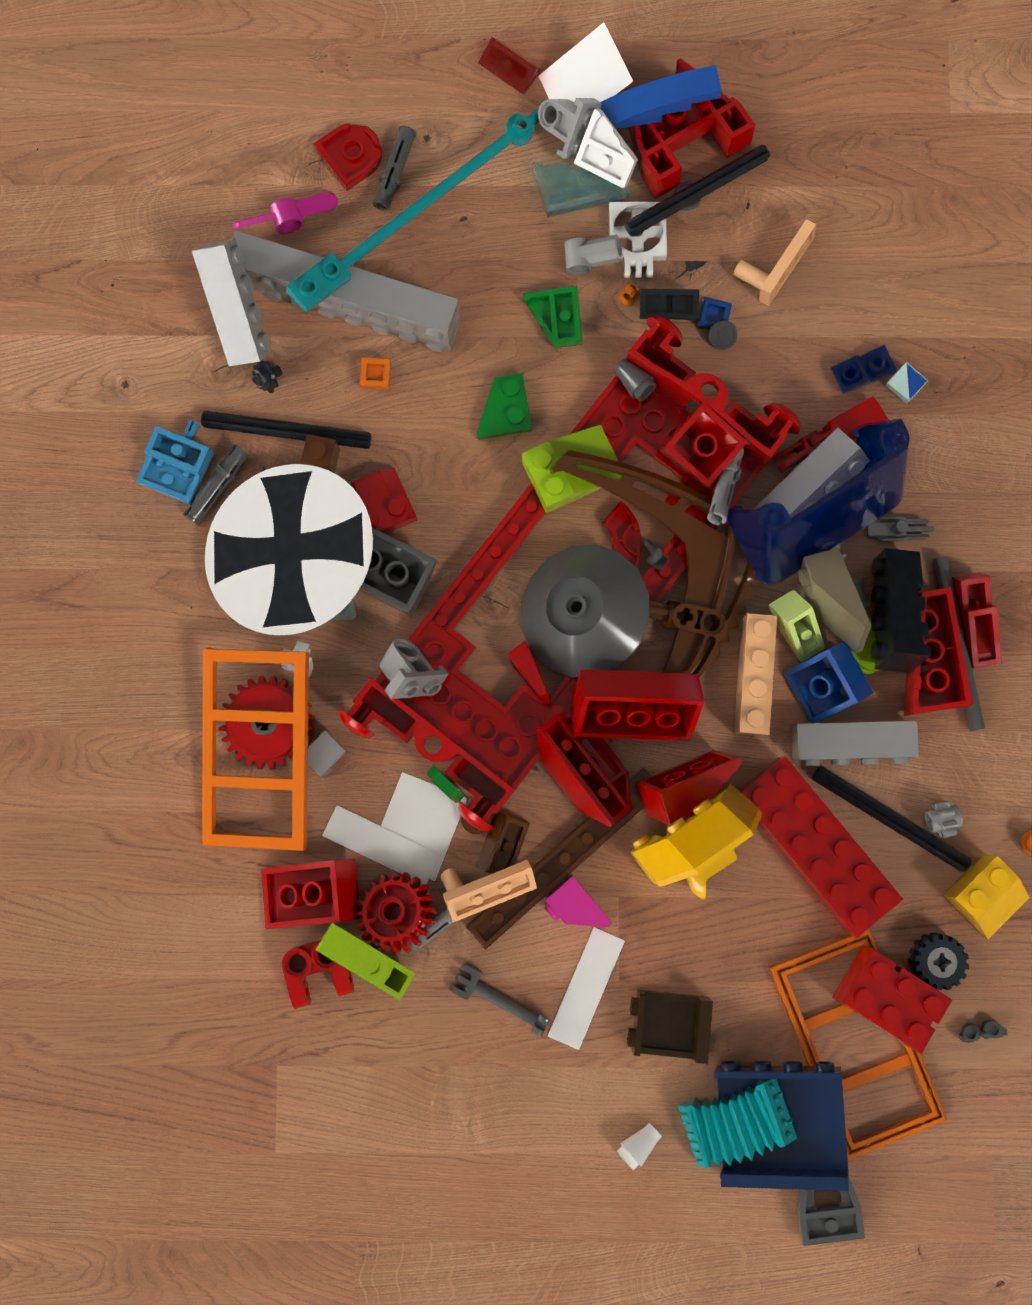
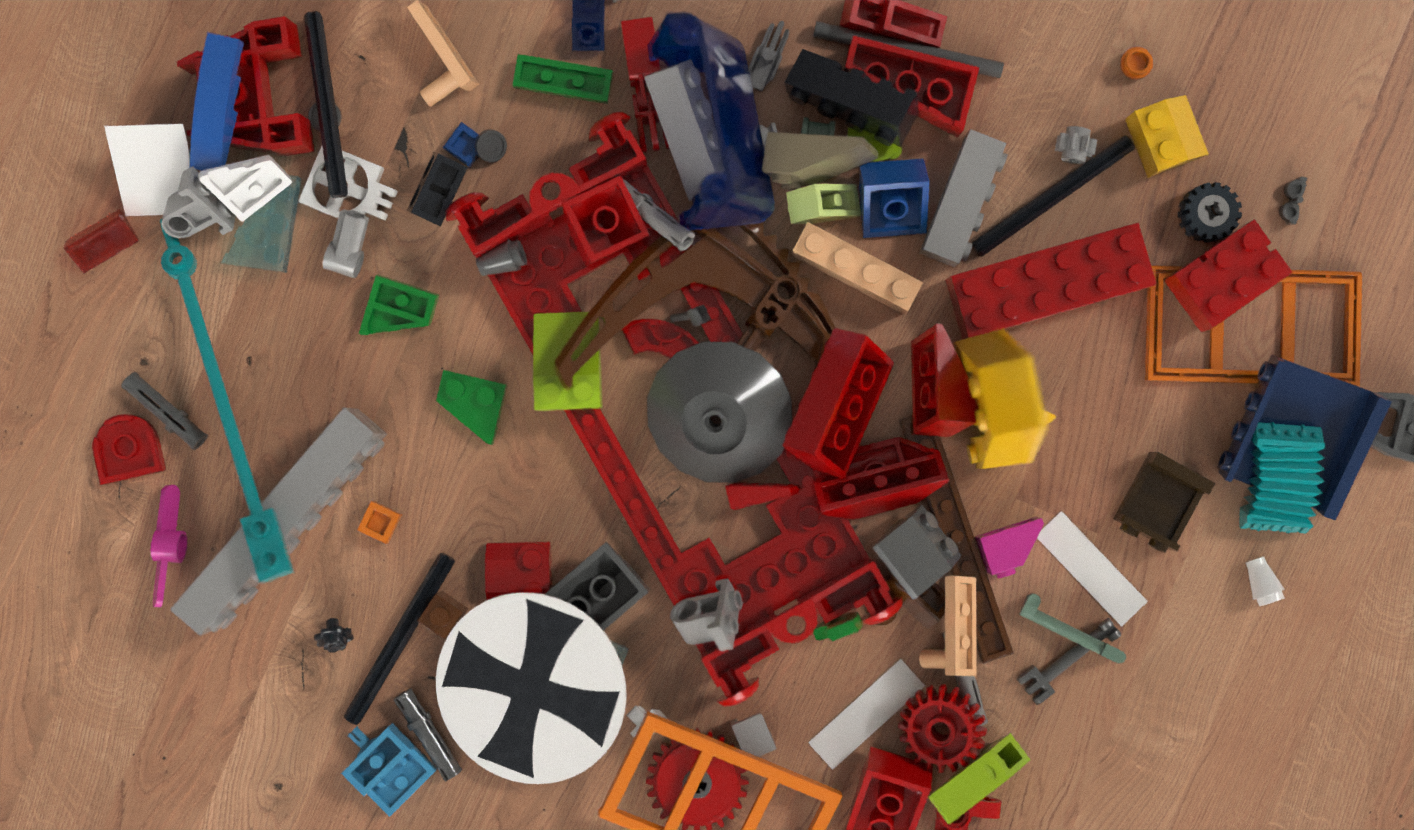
camera: 70 degrees left, 5 degrees up
(232, 301) = (244, 643): brick -> none
(423, 816) = (855, 662): white sticker -> none
(527, 948) = (1030, 611): none -> sand green hinge
(538, 826) = (917, 551): none -> dark grey slope
(629, 294) = (406, 223): orange rock -> none
(804, 369) = (562, 79): none -> green plate

